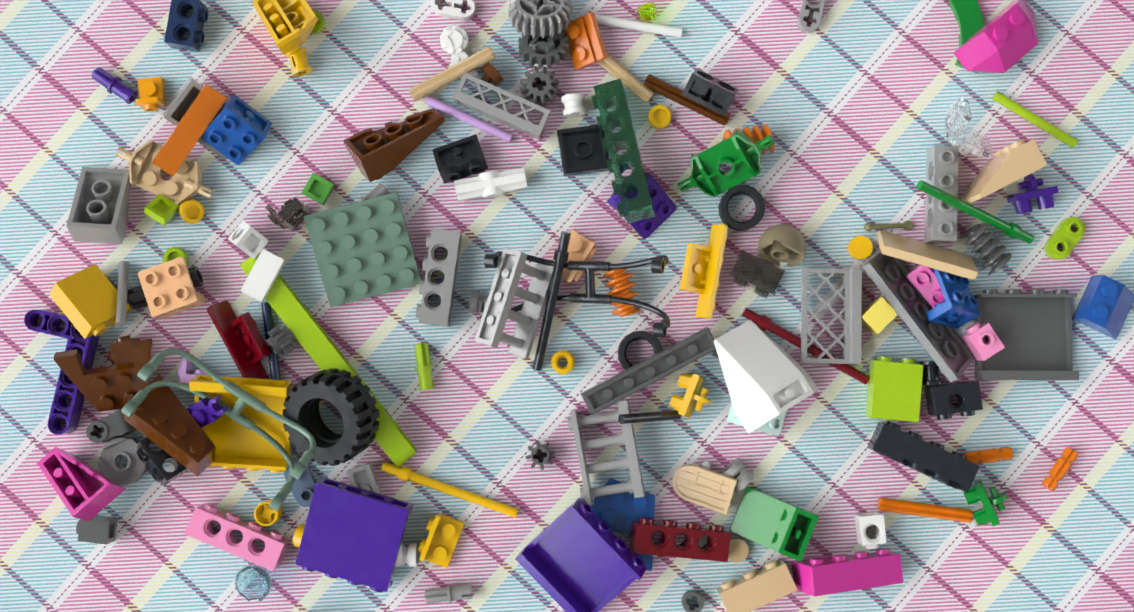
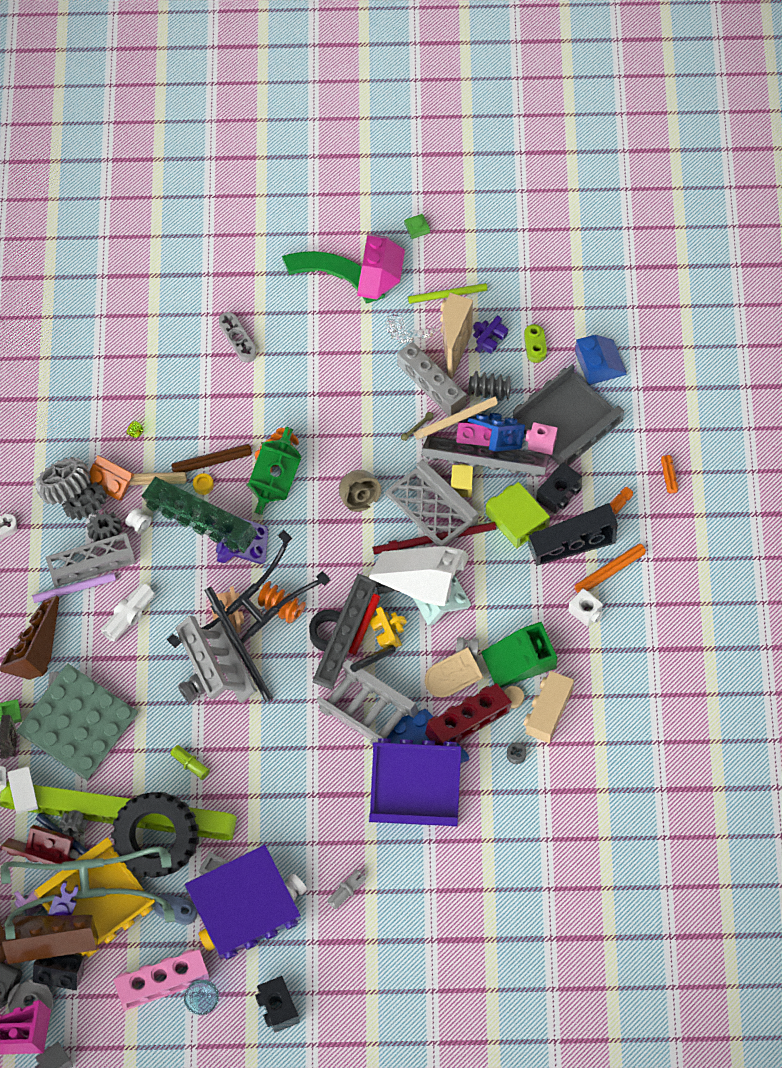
camera: 45 degrees left, 25 degrees down
(265, 515) = (170, 940): yellow wheel -> none
(406, 473) = (242, 840): yellow bar -> none
(441, 539) = (308, 860): yellow bracket -> none
(442, 314) = (132, 669): light grey brick -> none
(452, 73) = (37, 567): tan axle -> none
(455, 41) = (19, 548): white piece -> none
(460, 159) = (92, 614): black bracket -> none
(491, 75) = (64, 544): reddish brown tile -> none
(536, 460) = (323, 753): dark grey gear -> none
(563, 370) = (282, 674): yellow plate -> none
(582, 150) = (171, 542): black plate -> none
(638, 25) = (138, 441): white bar -> none
(685, 371) = (364, 624): none -> red bar
(703, 269) = (322, 546): yellow bracket -> none
(710, 92) = (222, 439): black brick -> none
(757, 274) = (359, 522): clear smoke bracket -> none
(759, 206) = (310, 477): black tyre -> none
(847, 572) = (596, 643): dark pink wedge -> none
(860, 247) = (411, 453): yellow tile -> none
(930, 373) = (529, 484): black bush -> none
(986, 514) = (650, 535): green hips -> none
(1010, 229) = (495, 364): green bar -> none
(1070, 27) = (417, 226): none -> bright green plate

